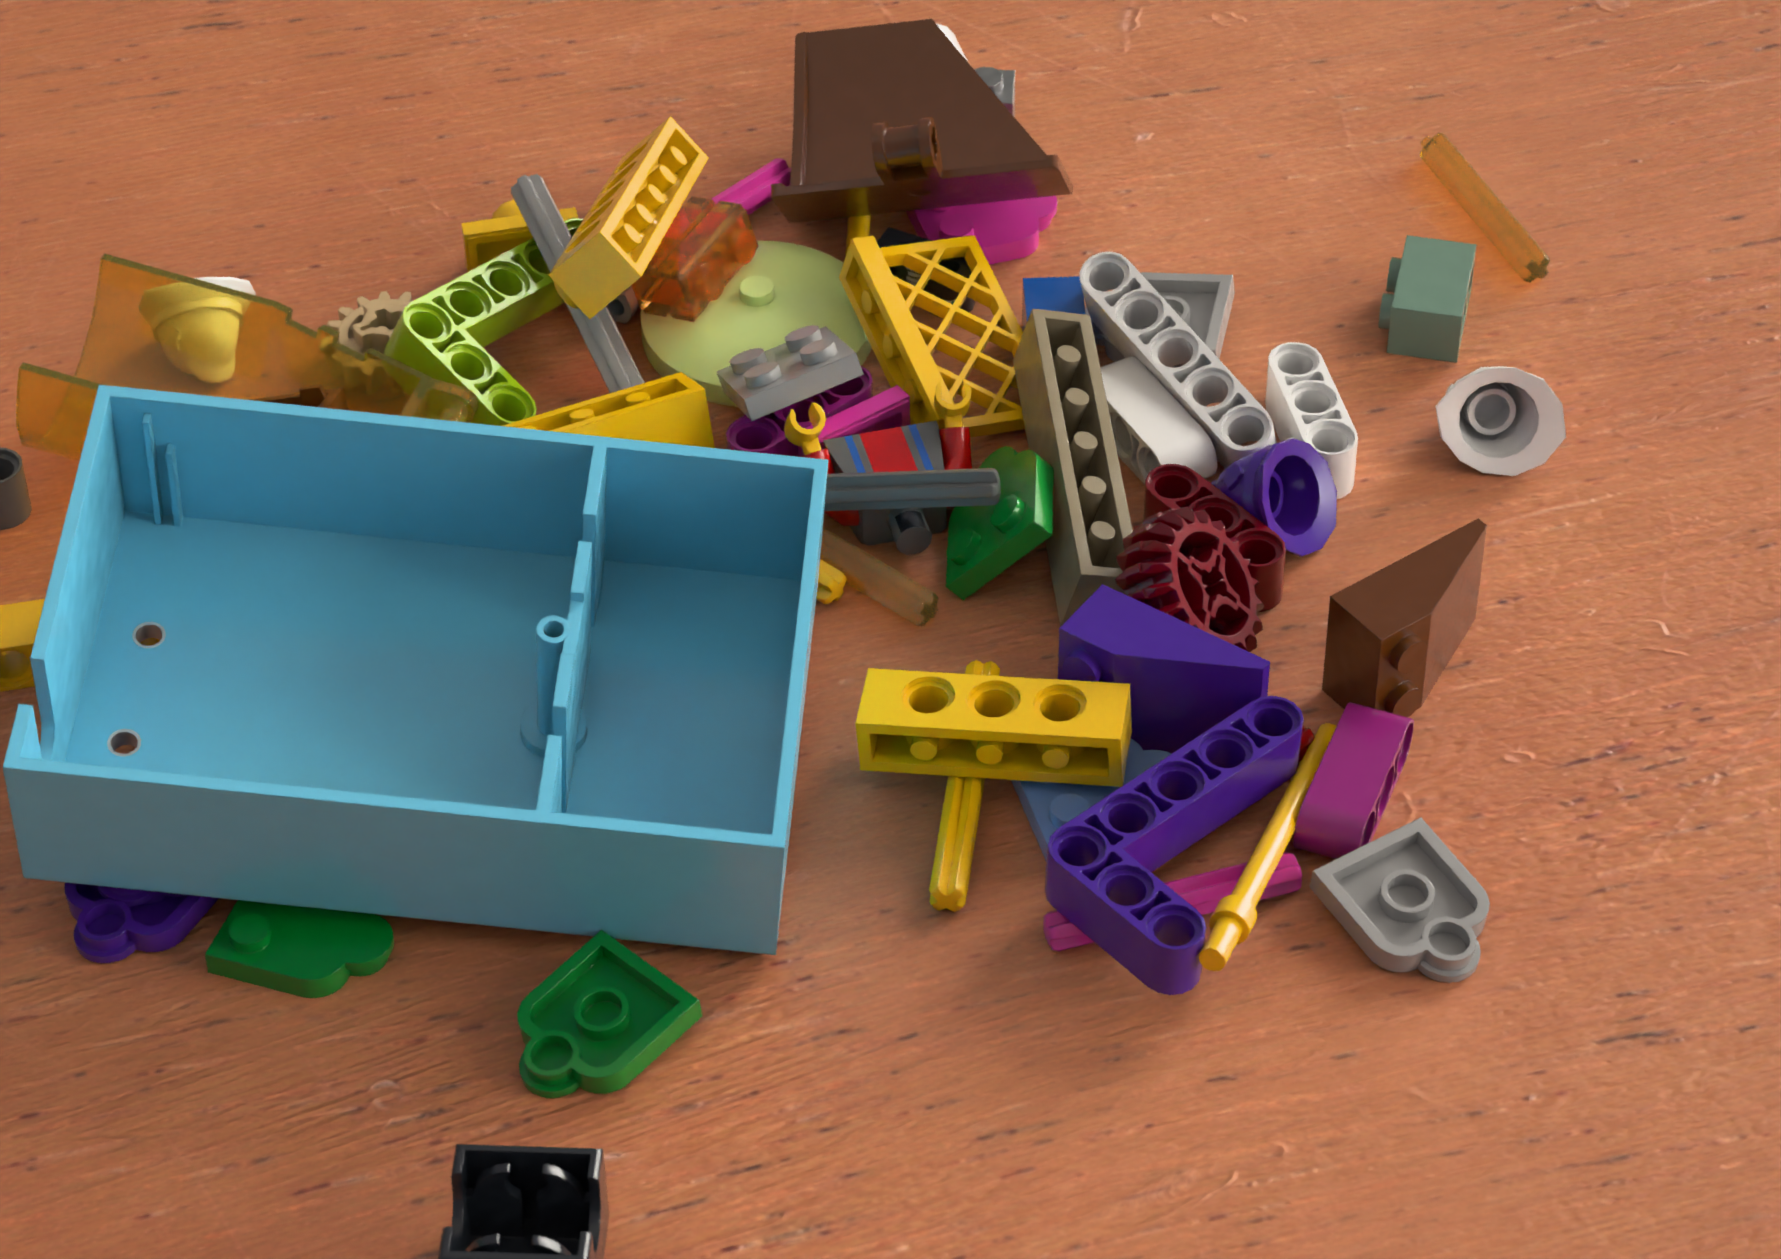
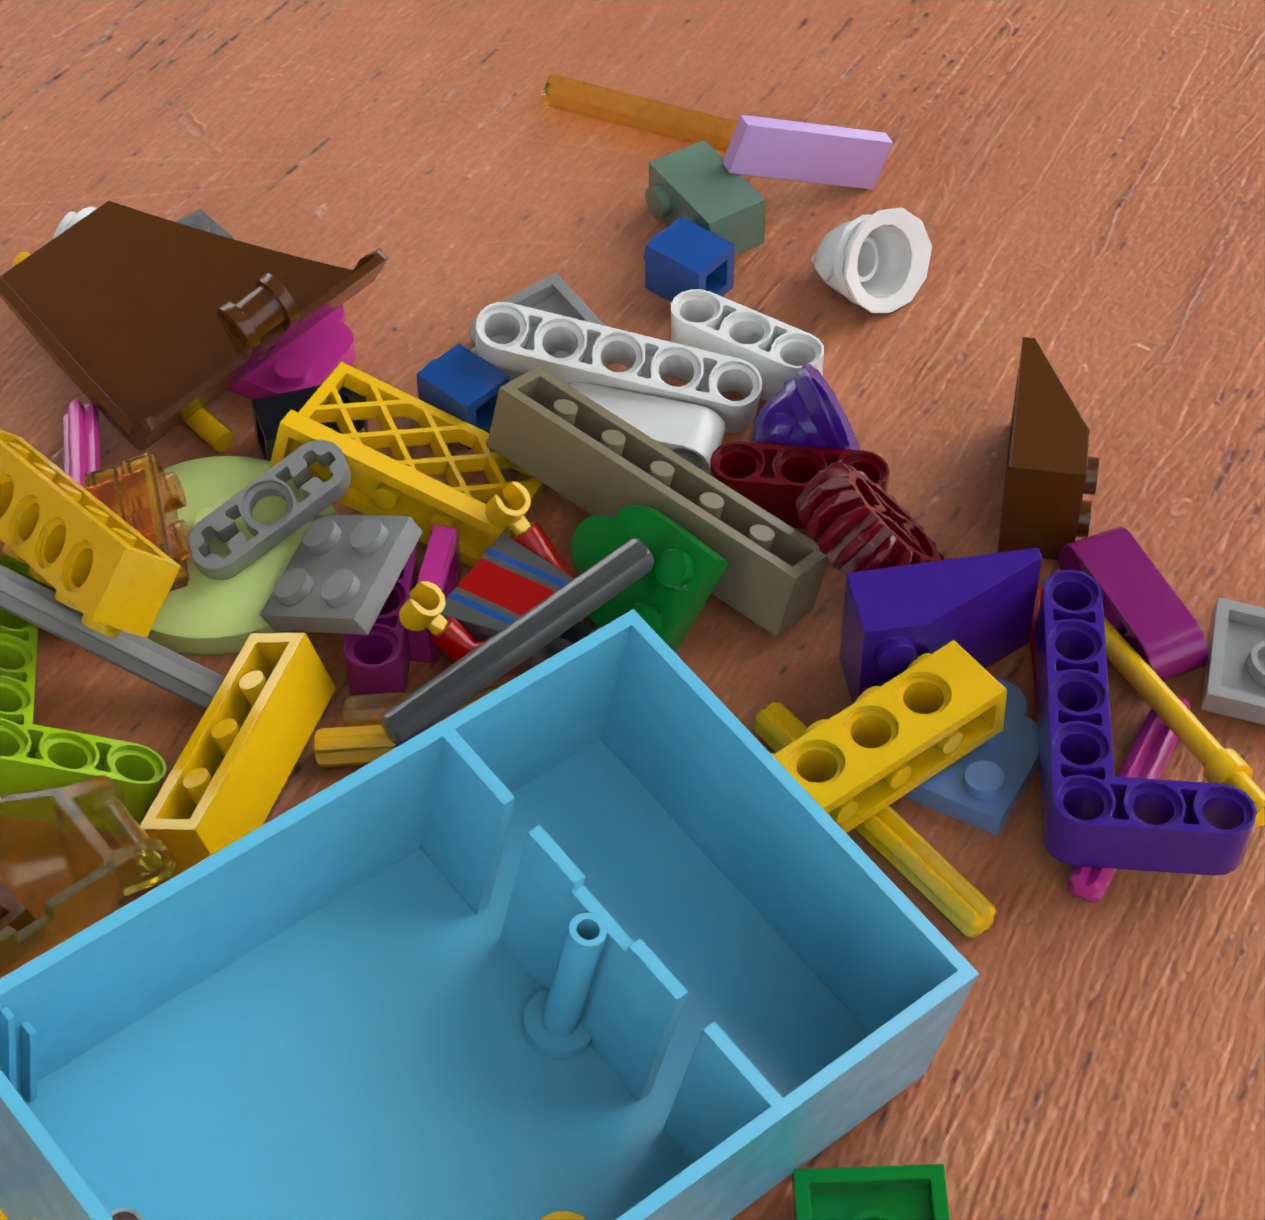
camera: 45 degrees left, 5 degrees up
(813, 308) = (266, 536): none -> light grey beam
(1352, 335) = (688, 259): none -> blue brick
(1548, 302) = (806, 152): none -> lavender tile

